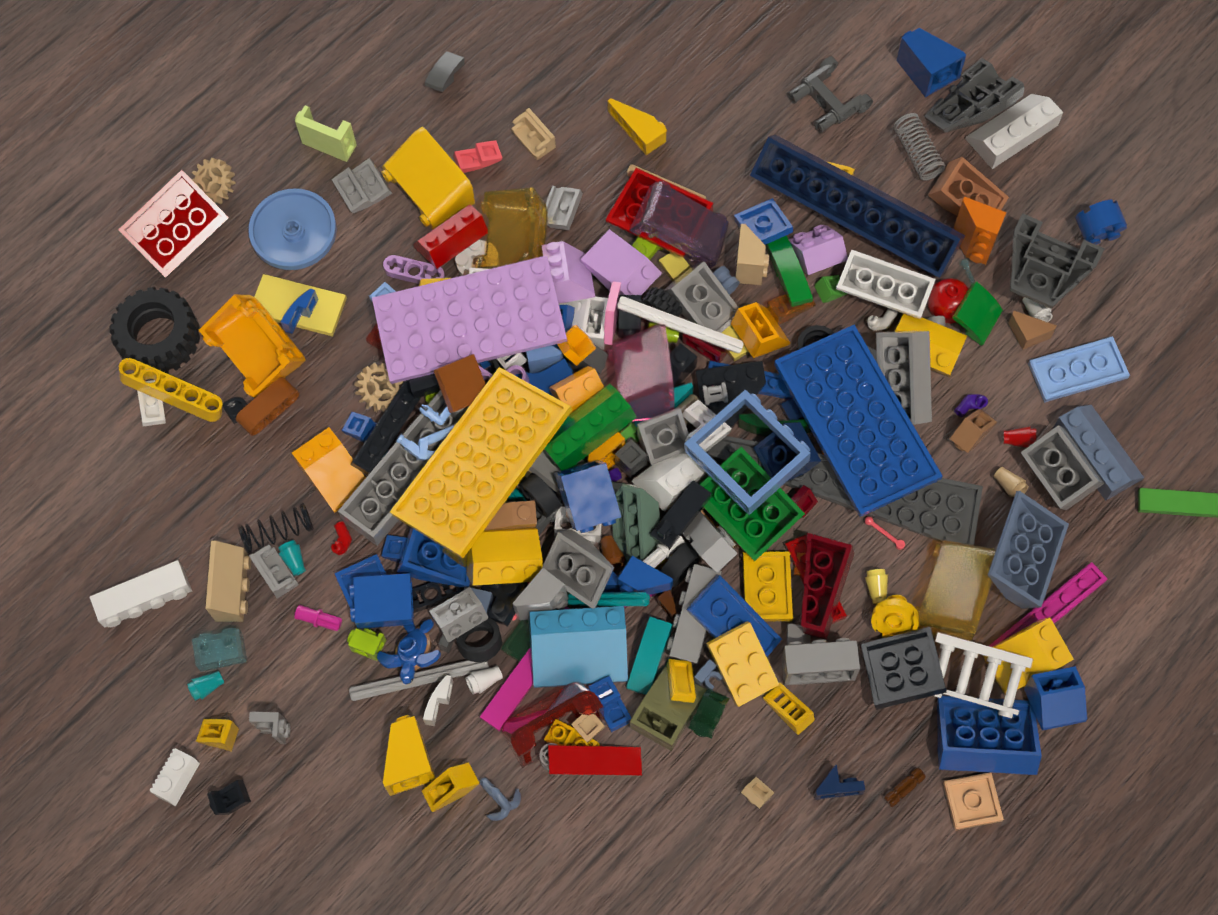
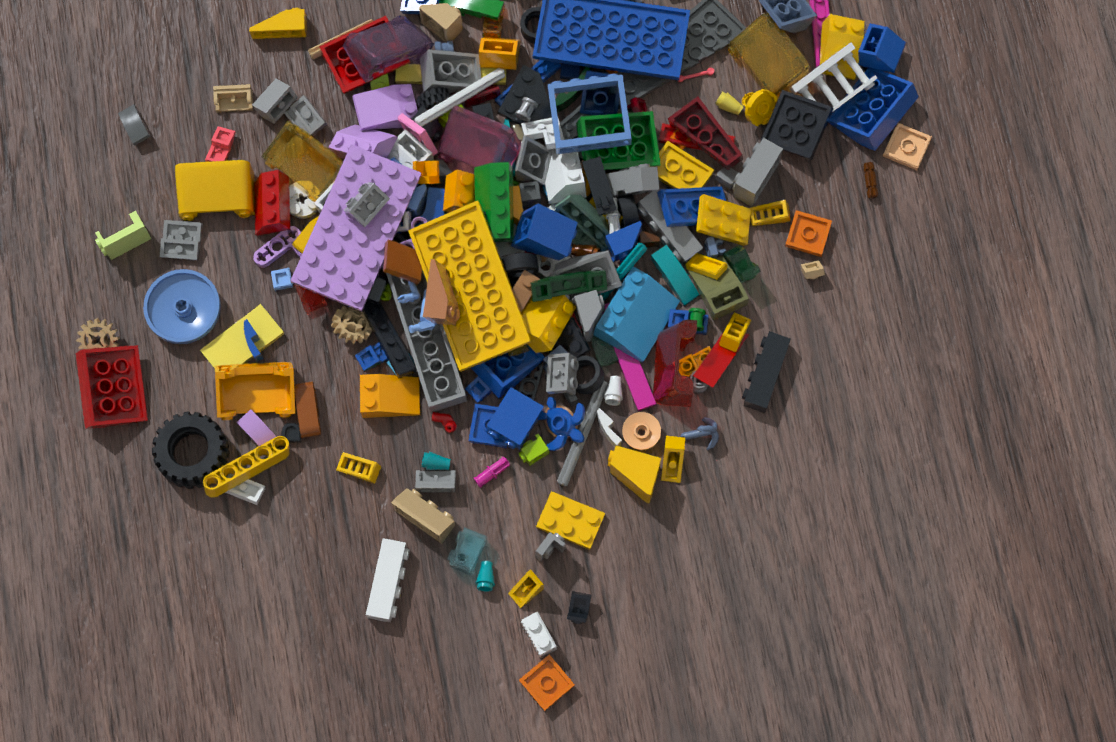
camera: 55 degrees left, 5 degrees up
(131, 819) = (546, 682): none -> orange plate
(217, 374) = (255, 428): none -> lavender slope
(246, 505) = (370, 470): none -> yellow slope
(247, 539) = (400, 484): black piece -> none
(318, 729) = (570, 520): none -> yellow plate
(445, 438) = (440, 299): none -> nougat slope
(456, 723) = (645, 422): none -> light nougat dish
(493, 309) = (366, 203): none -> light grey bracket
(551, 552) = (568, 284): none -> dark green slope
(555, 169) = (274, 101): none -> light grey brick
(588, 726) = (696, 344): tan plate -> none
(610, 820) = (766, 372): none -> black brick
(615, 709) = (697, 314): none -> green bush
(617, 757) = (734, 332): none -> yellow slope
(795, 761) = (808, 233): none -> orange plate
(833, 788) = (841, 220): dark blue slope -> none

